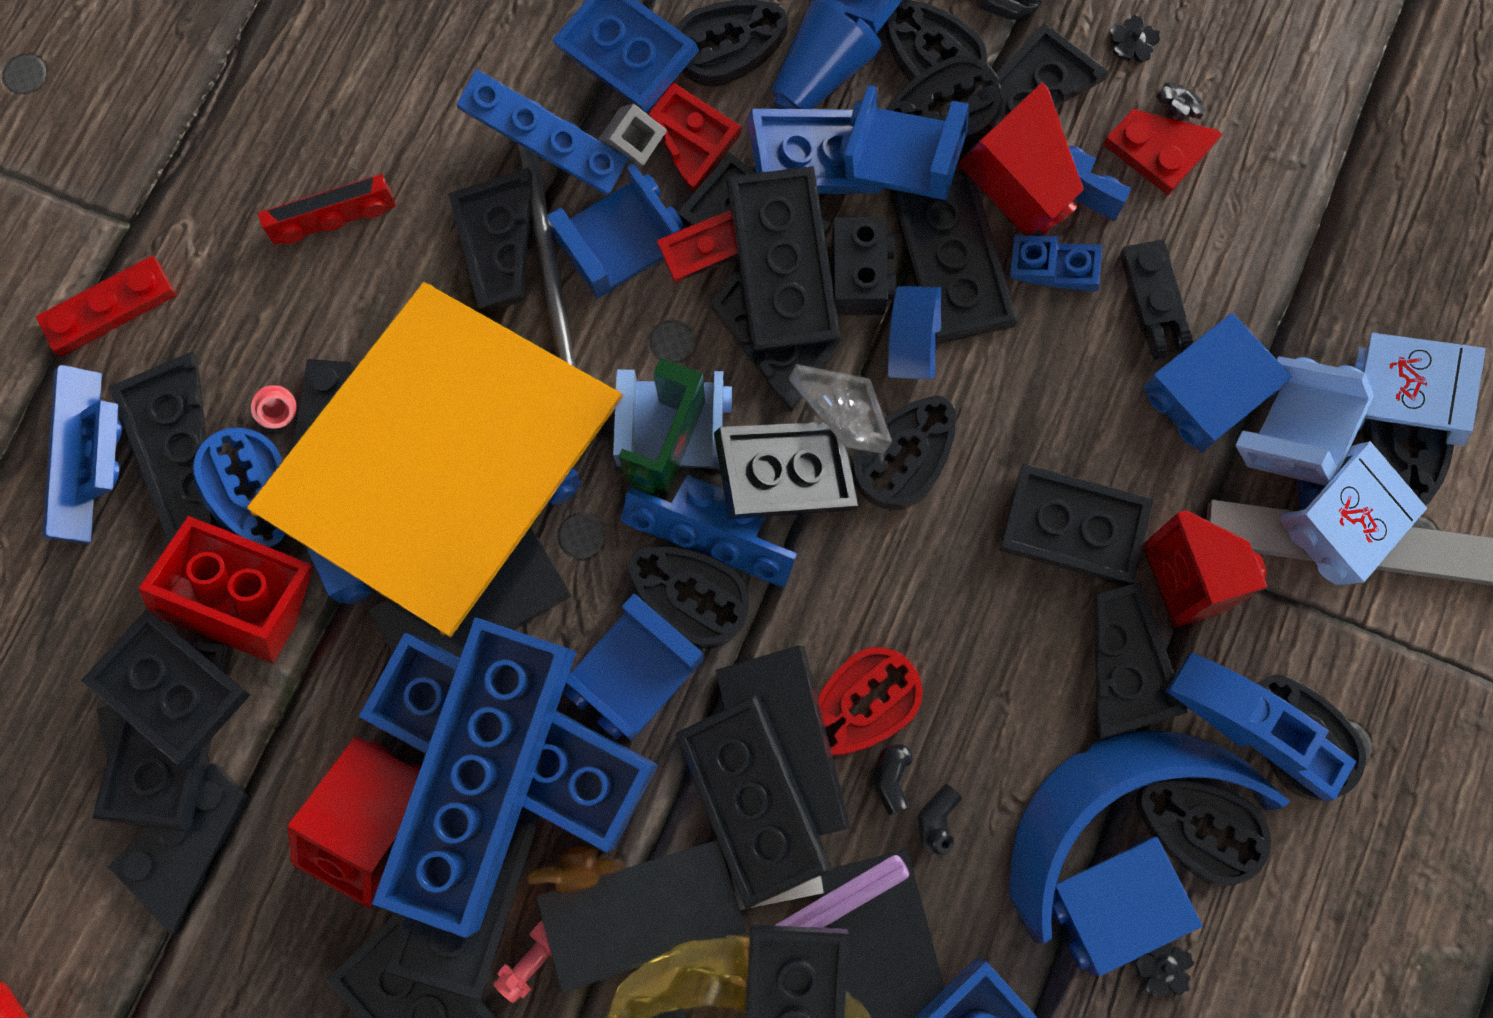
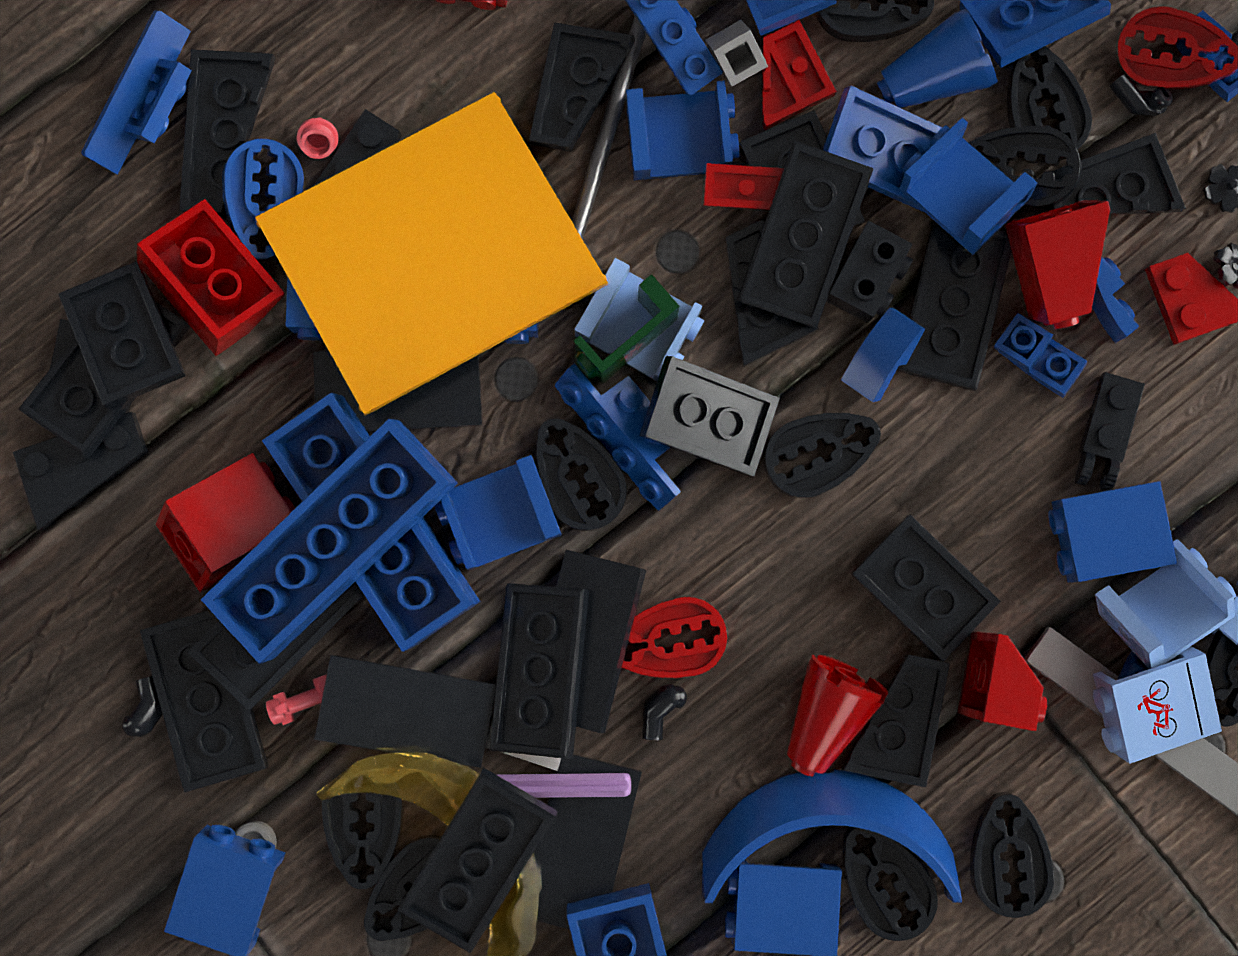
camera: 25 degrees right, 10 degrees up
(576, 870) = (372, 651): clear orange plate -> none
(845, 405) = (788, 389): clear wing -> none
(934, 823) = (674, 764): black arm -> none
(1057, 691) = (830, 713): none -> red cone
(1265, 722) = (978, 828): blue slope -> none

